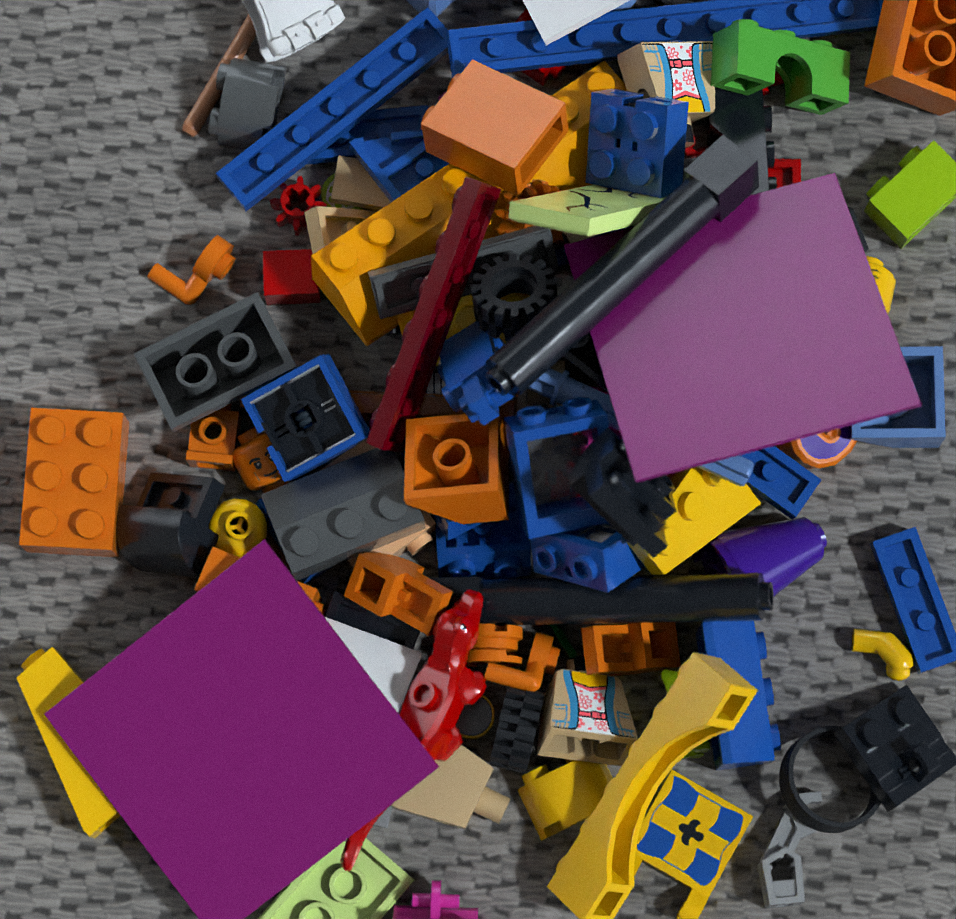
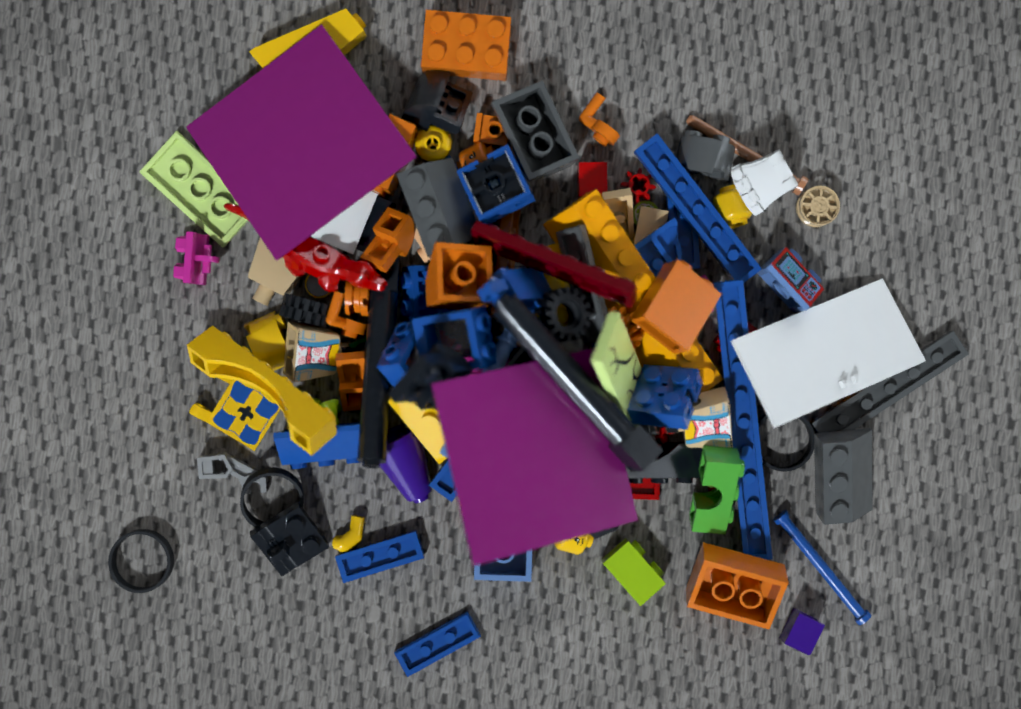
camera: 90 degrees right, 10 degrees up
(327, 57) = (731, 207): none -> yellow head

